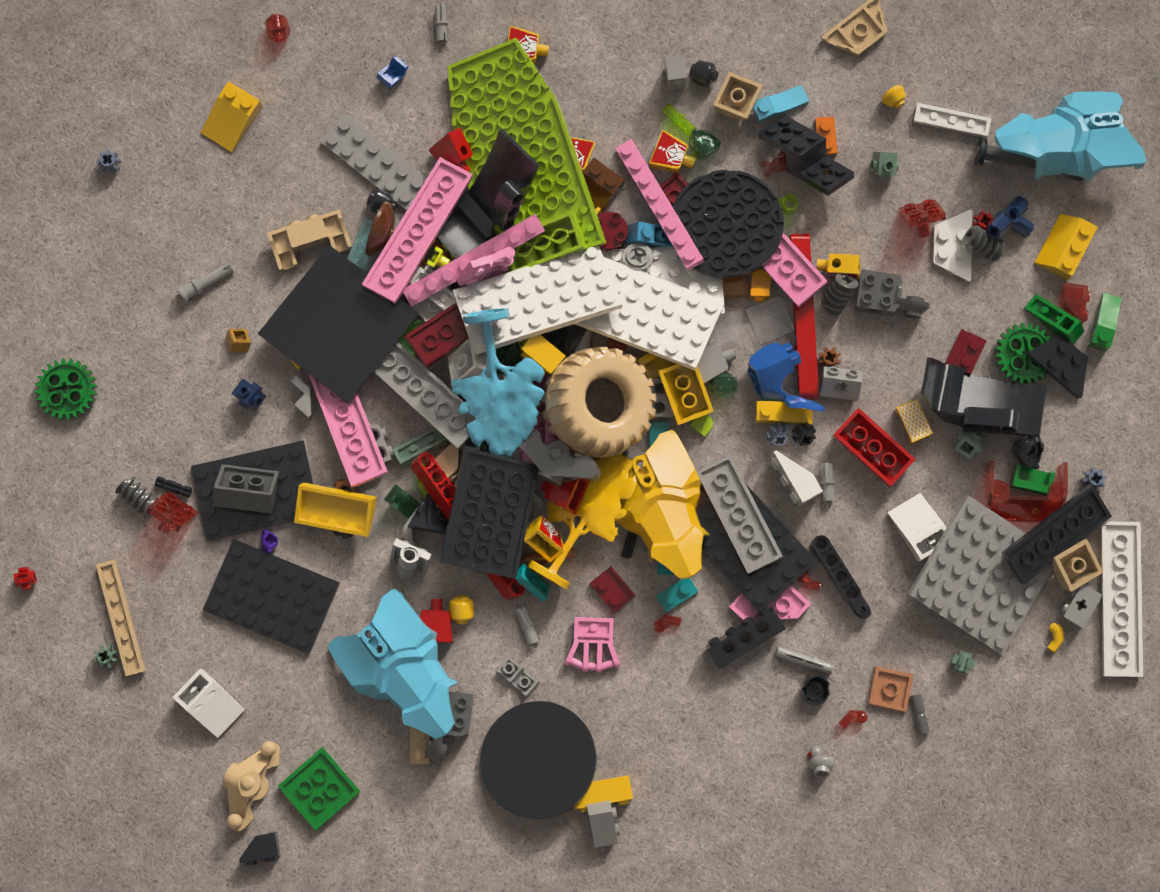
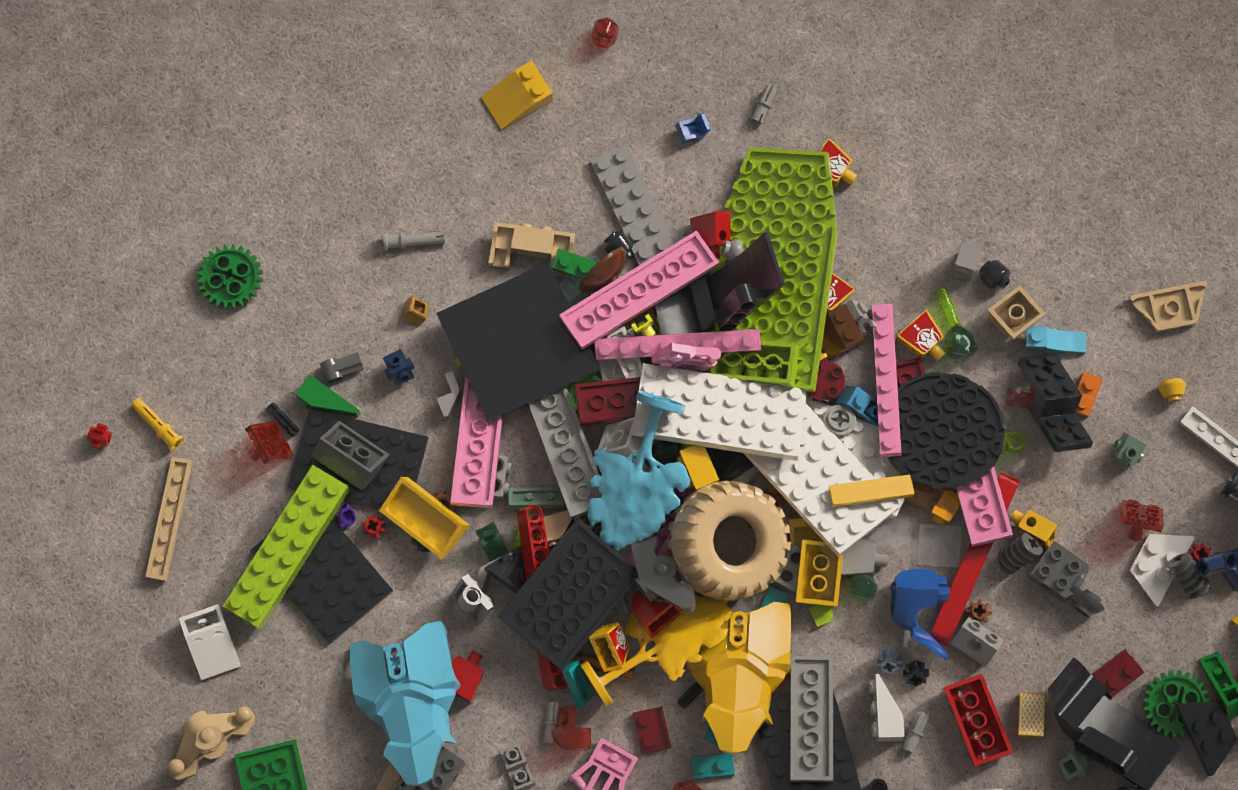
camera: 30 degrees right, 5 degrees down
(76, 546) = (162, 430): none -> yellow pin
(105, 156) = (380, 87): sand blue gear -> none
(105, 651) = (131, 552): sand green gear -> none
(135, 495) = (242, 409): dark grey piece -> none
(196, 452) = (320, 397): none -> green slope
(197, 421) = (337, 369): none -> dark grey piece
(233, 592) = (286, 548): none -> lime brick
(296, 533) = (376, 522): none -> red gear
(350, 236) = (572, 264): none -> green plate
(461, 609) = (496, 674): yellow head -> none
(477, 158) = (732, 249): none -> light grey animal
(546, 628) = (567, 734): none -> clear red brick
(607, 158) = (859, 314): none -> light grey plate
(694, 302) = (871, 490): none -> yellow tile
(776, 412) = (899, 638): yellow slope -> none

